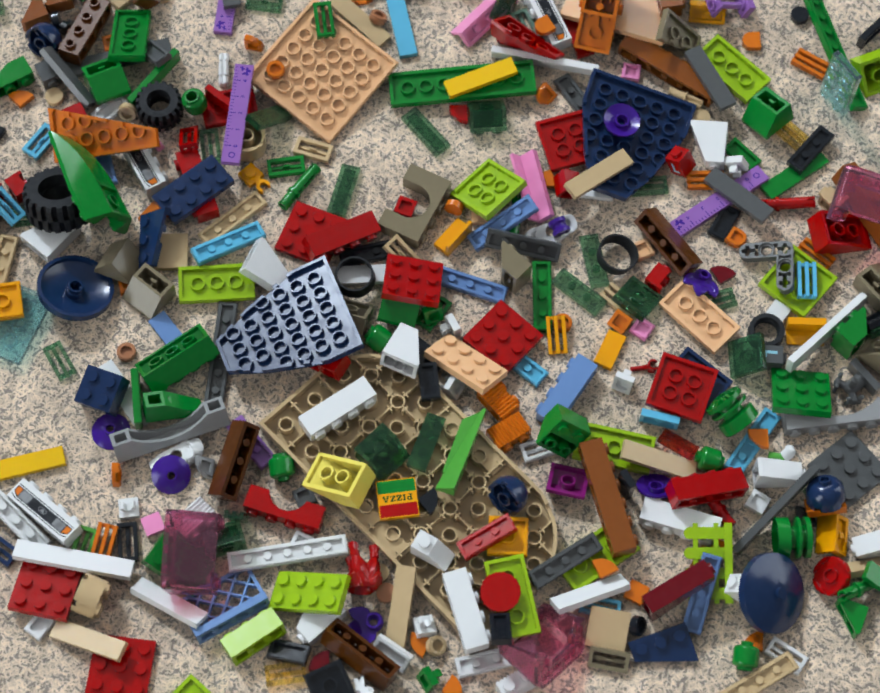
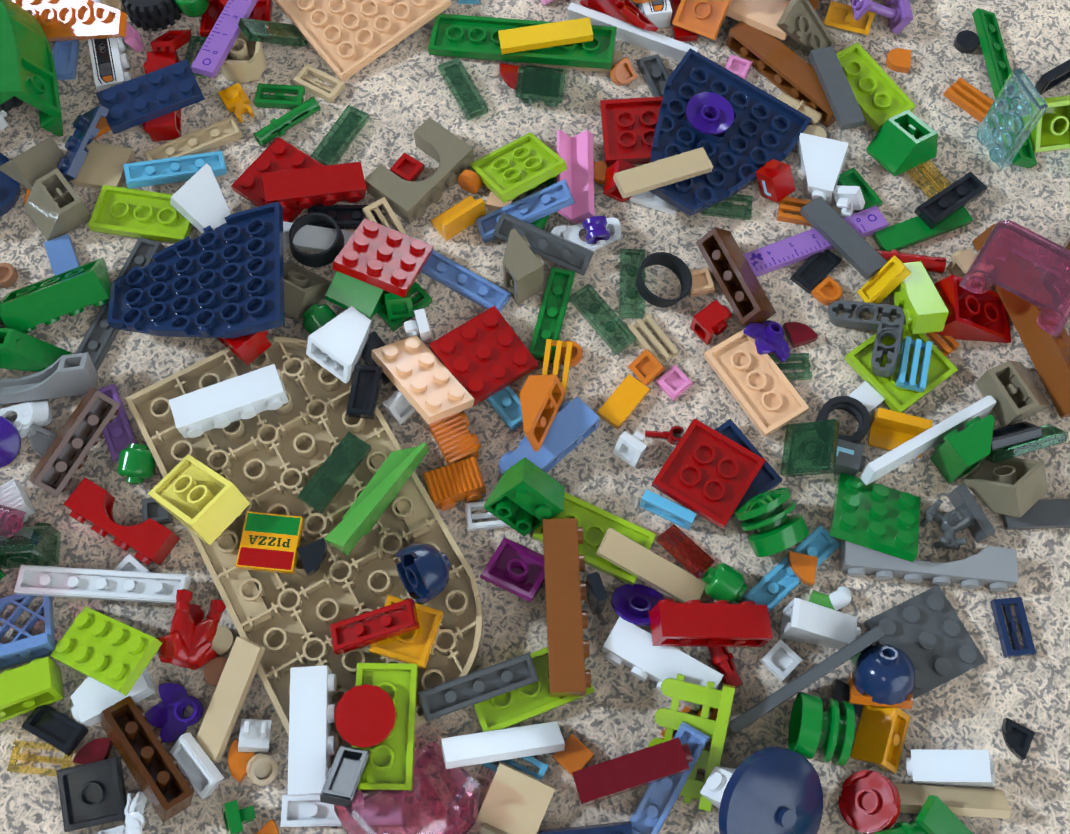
camera: 15 degrees right, 0 degrees up
(235, 516) = (47, 517): clear green tile -> none
(382, 452) = (267, 473): clear green slope -> none
(432, 550) = (291, 629): white slope -> none
(554, 362) = (539, 405): none -> orange slope
(604, 567) = (534, 709): orange tile -> none
(637, 298) = (676, 342): clear green tile -> none
(637, 626) = (561, 810): black tile -> none
(774, 224) = (884, 281): none -> yellow tile
(798, 231) = (920, 301): none -> lime brick

